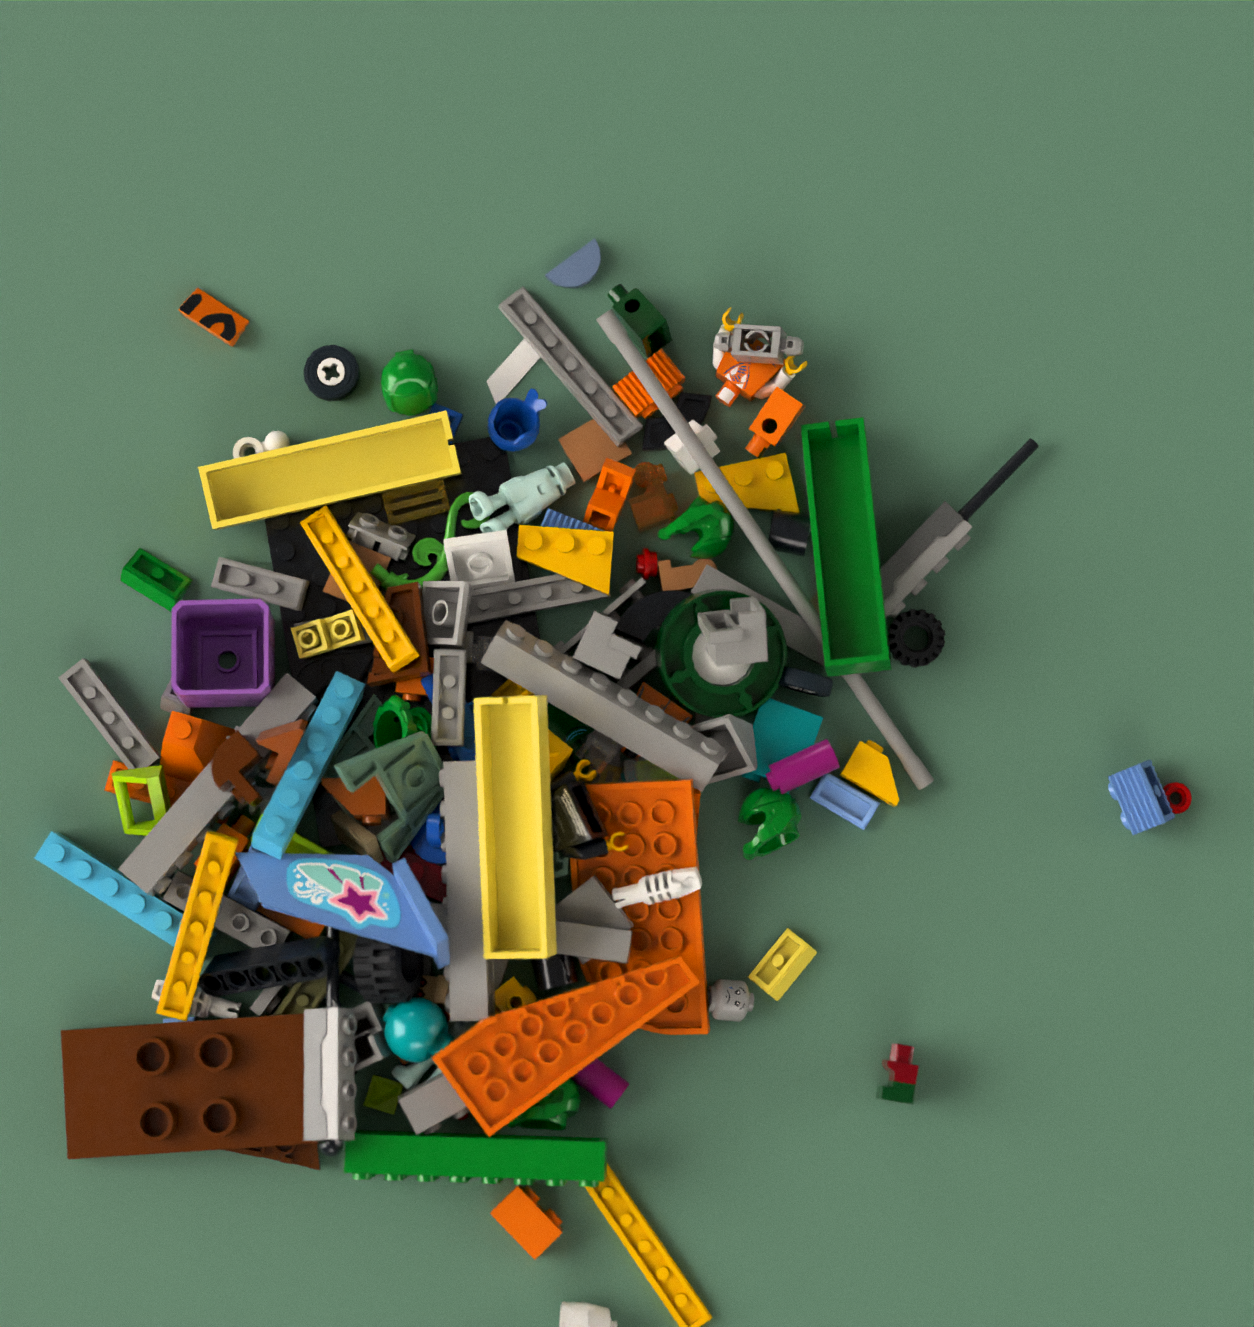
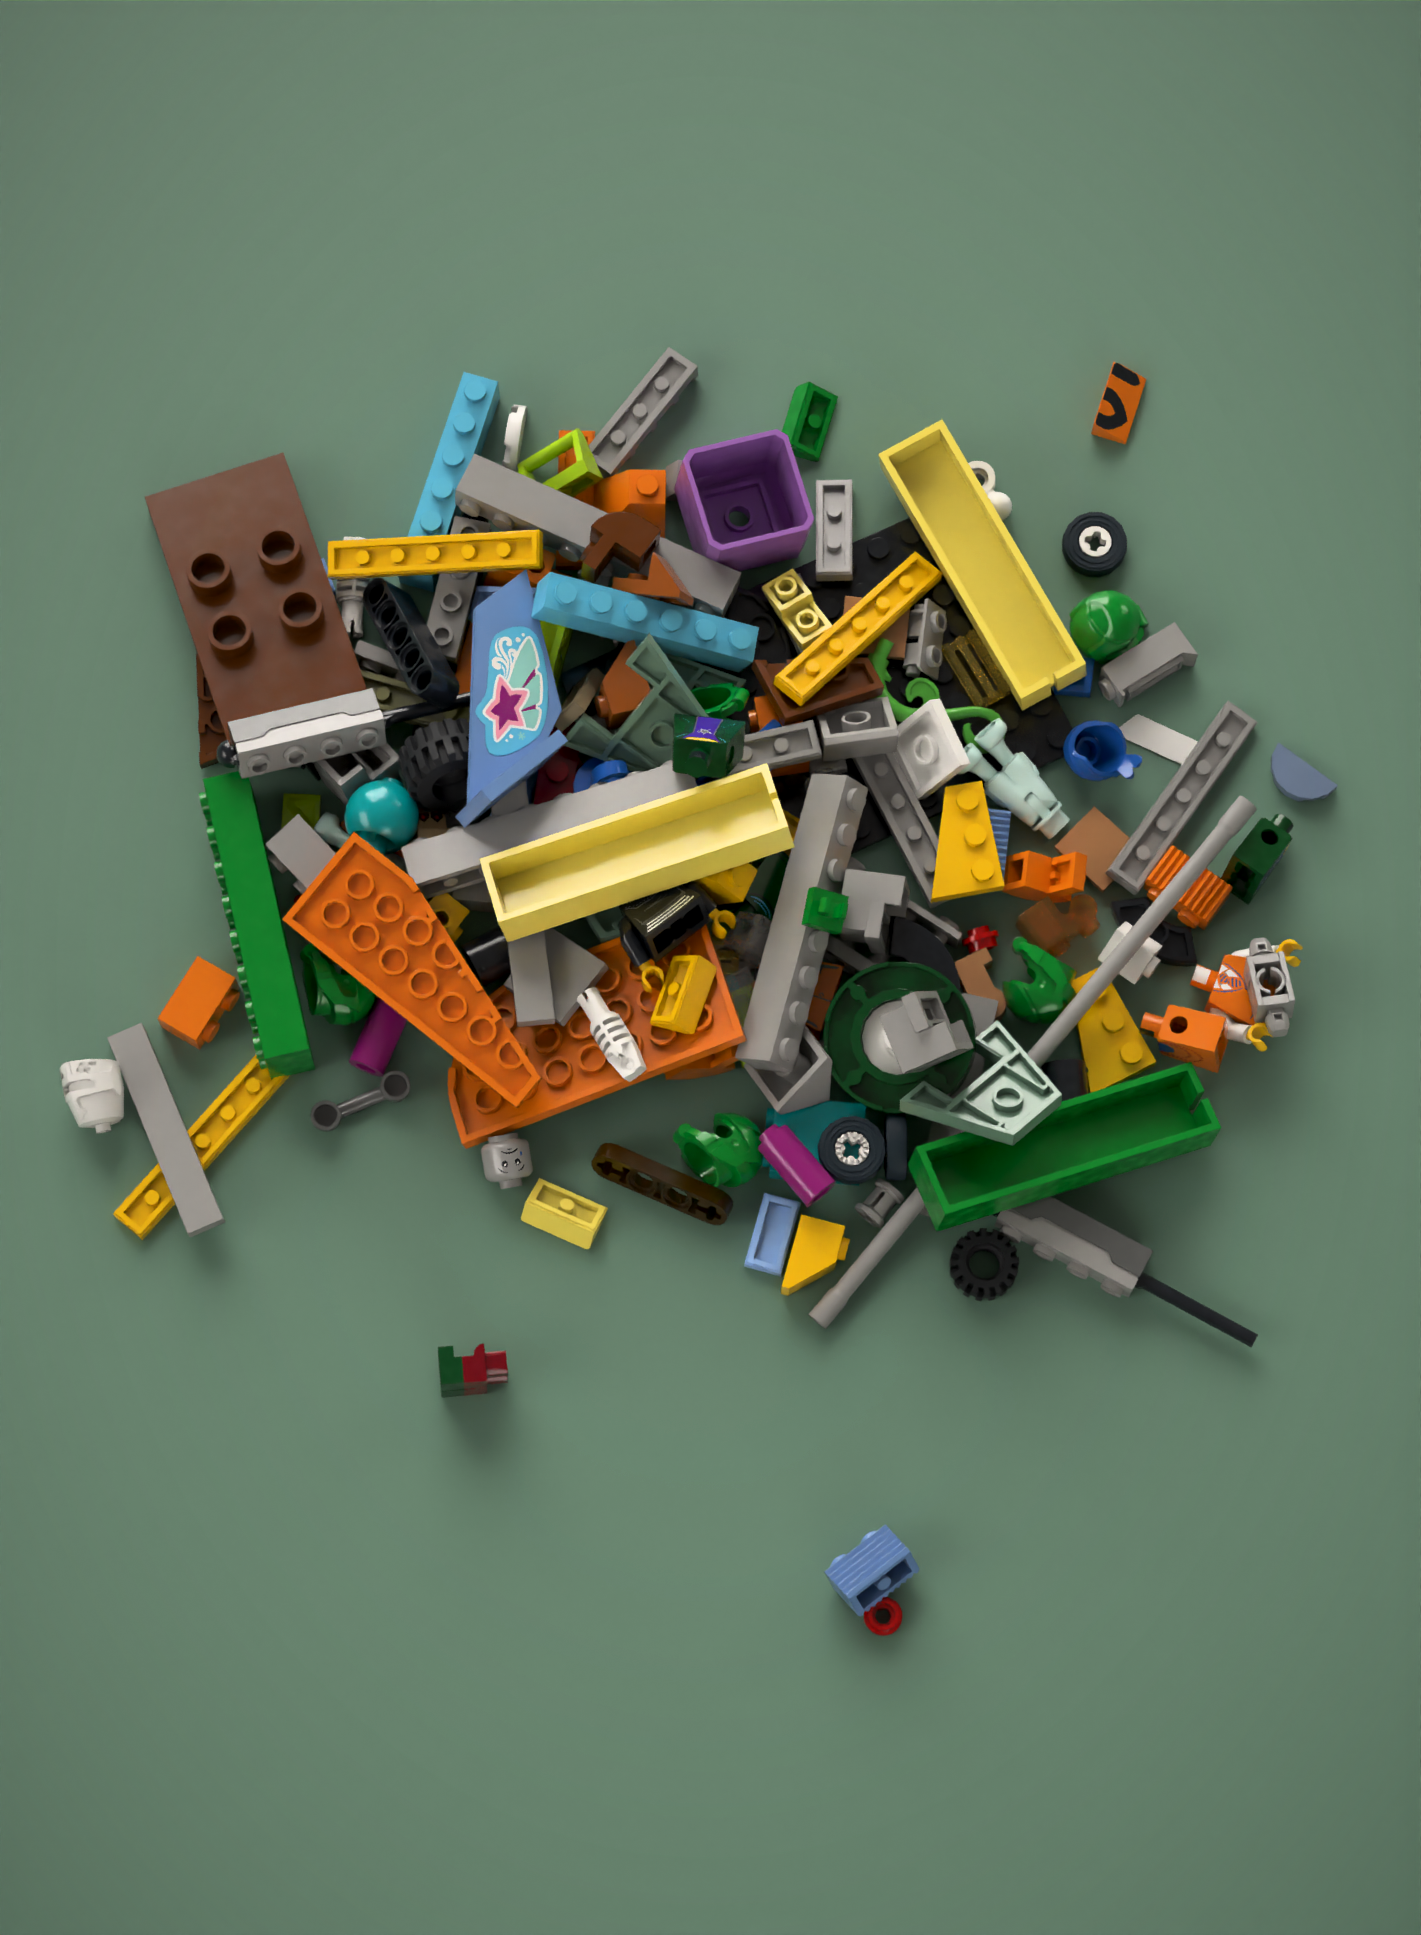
camera: 70 degrees right, 10 degrees down
(100, 830) = (514, 436): none -> white tile
(441, 745) = (706, 745): none -> dark green torso
(450, 361) = (1146, 664): none -> light grey window
(607, 684) = (825, 910): none -> green tile
(628, 1275) = (166, 1130): none -> light grey tile
(639, 819) = (683, 993): none -> yellow slope
(649, 1138) = (393, 1088): none -> dark grey bar
(782, 878) = (622, 1168): none -> dark brown beam
(804, 587) = (1001, 1102): none -> sand green wing
(808, 703) = (854, 1131): none -> black bush
(853, 711) = (879, 1203): none -> light grey bush

